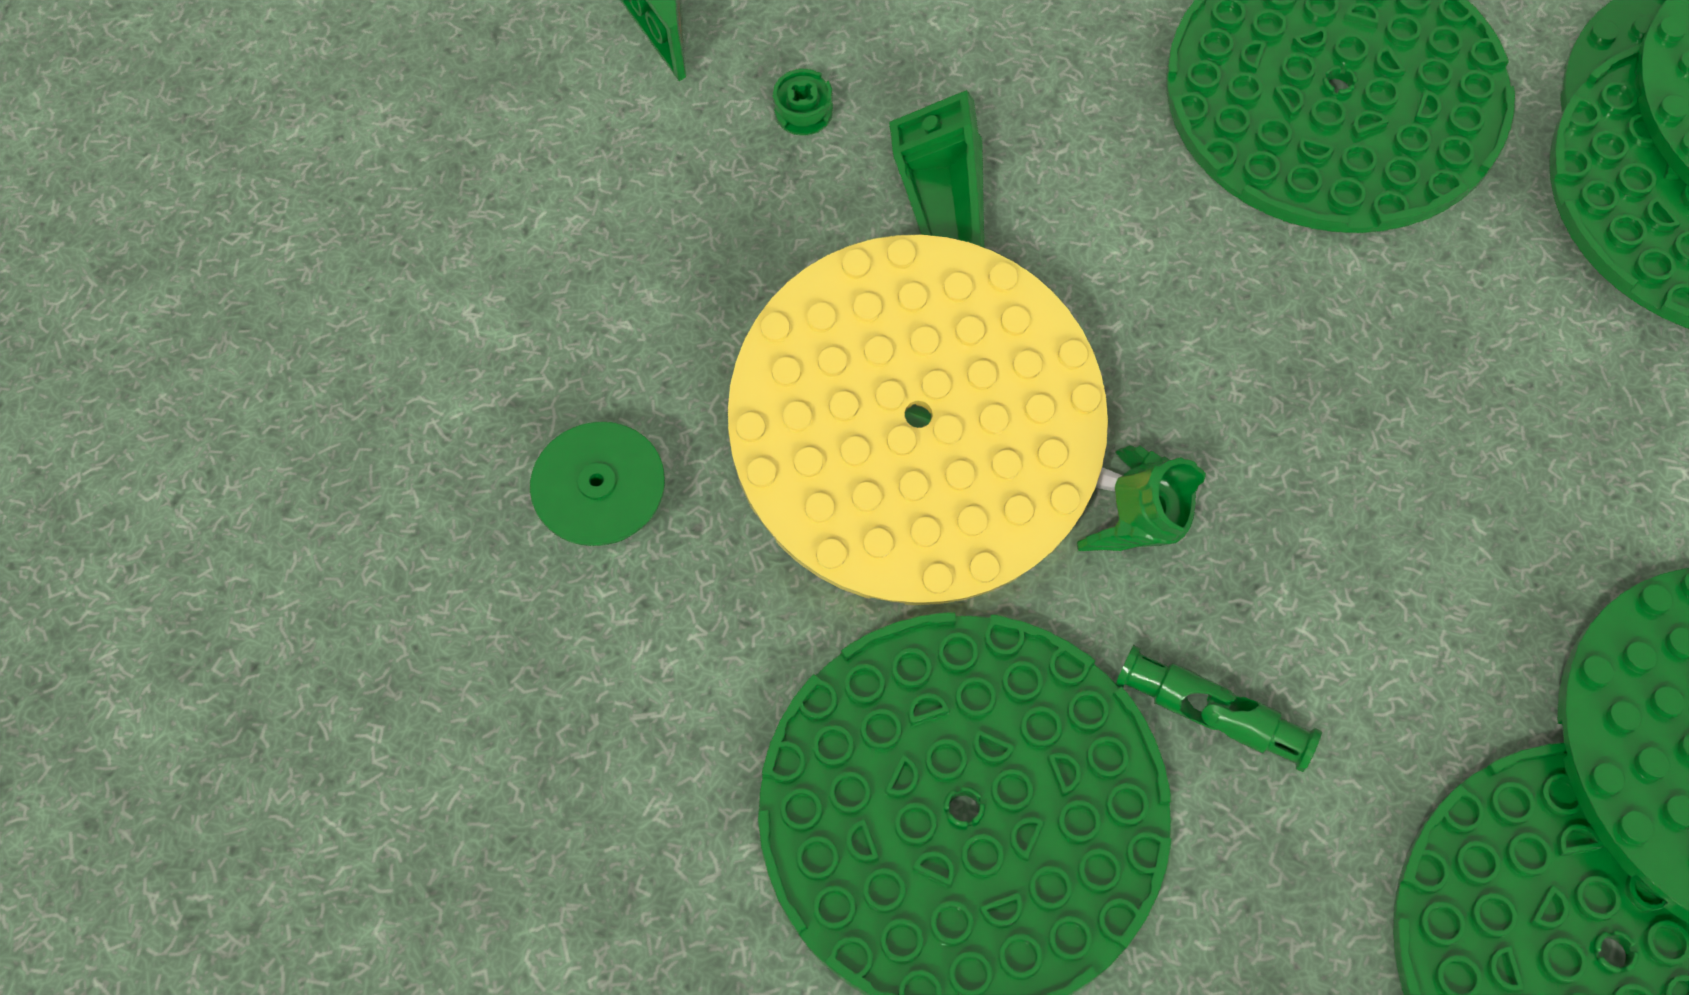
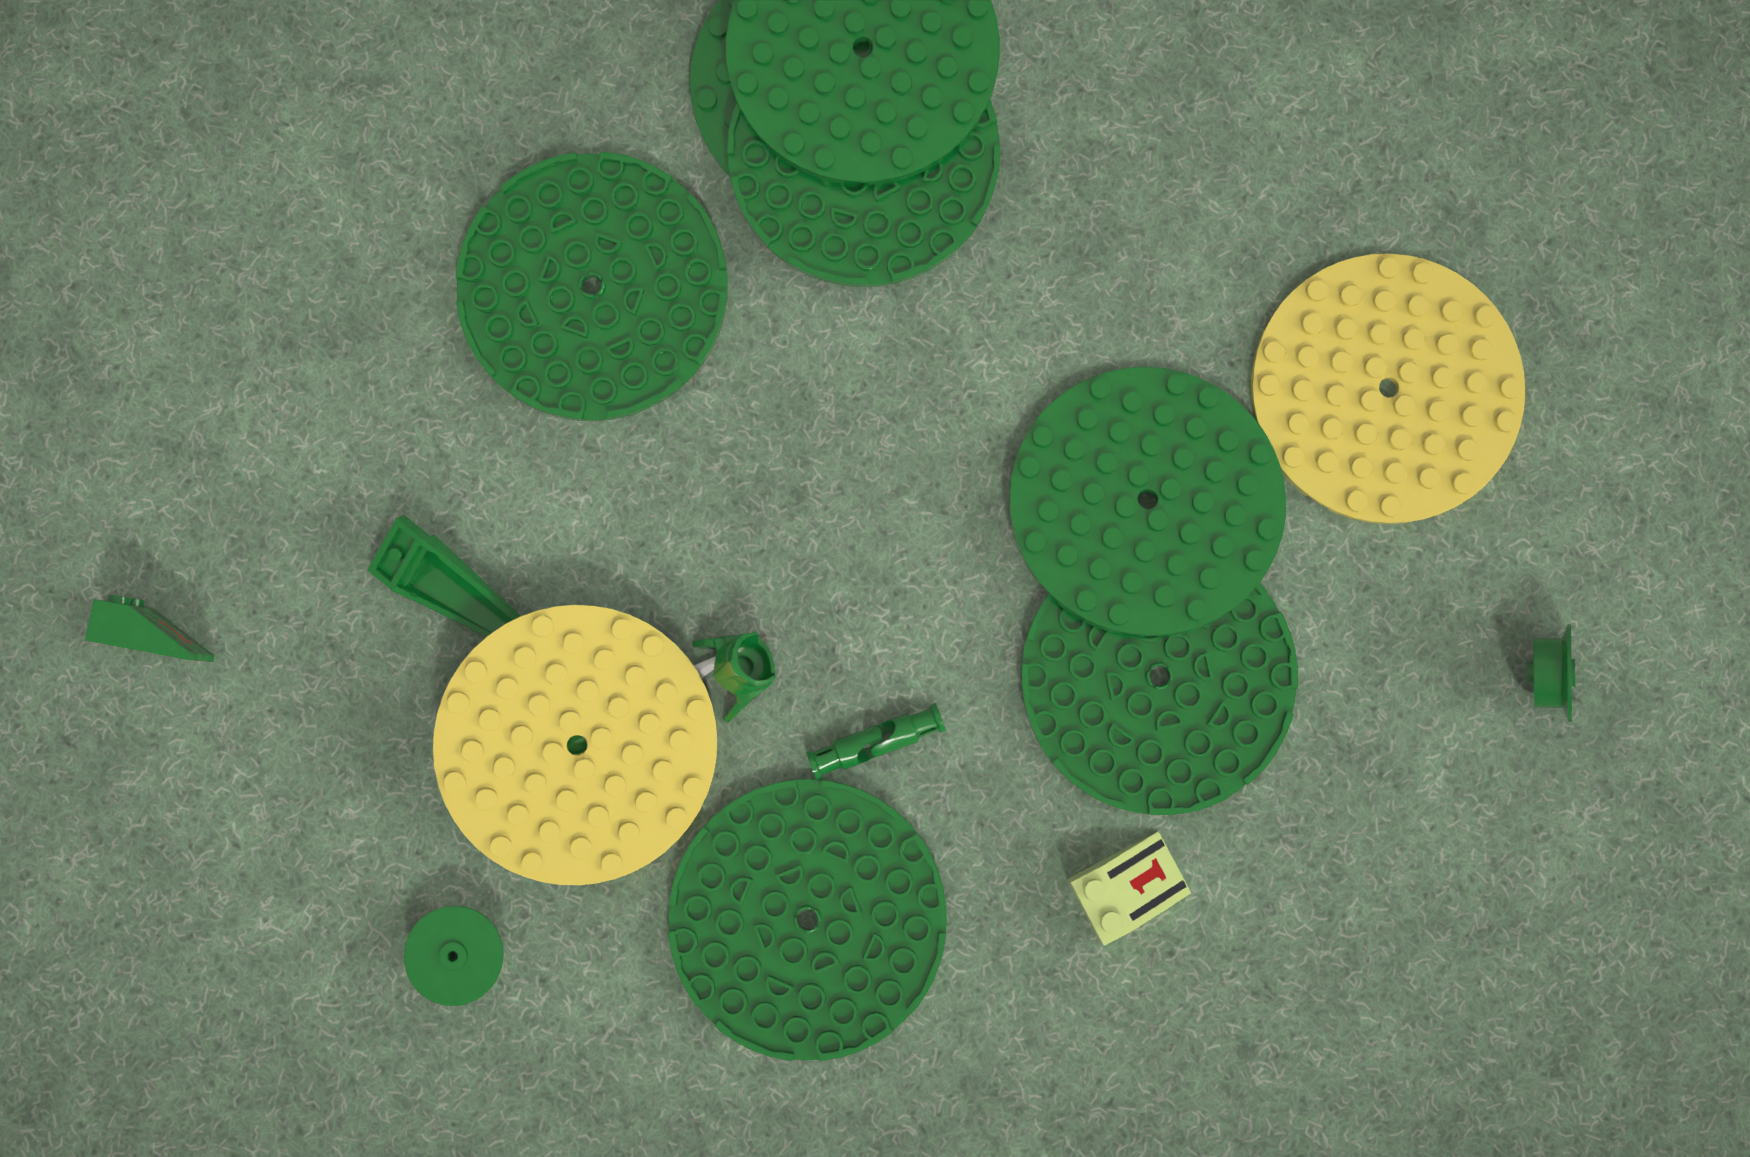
camera: 50 degrees left, 20 degrees up
(802, 102) = (303, 607): green wheel -> none

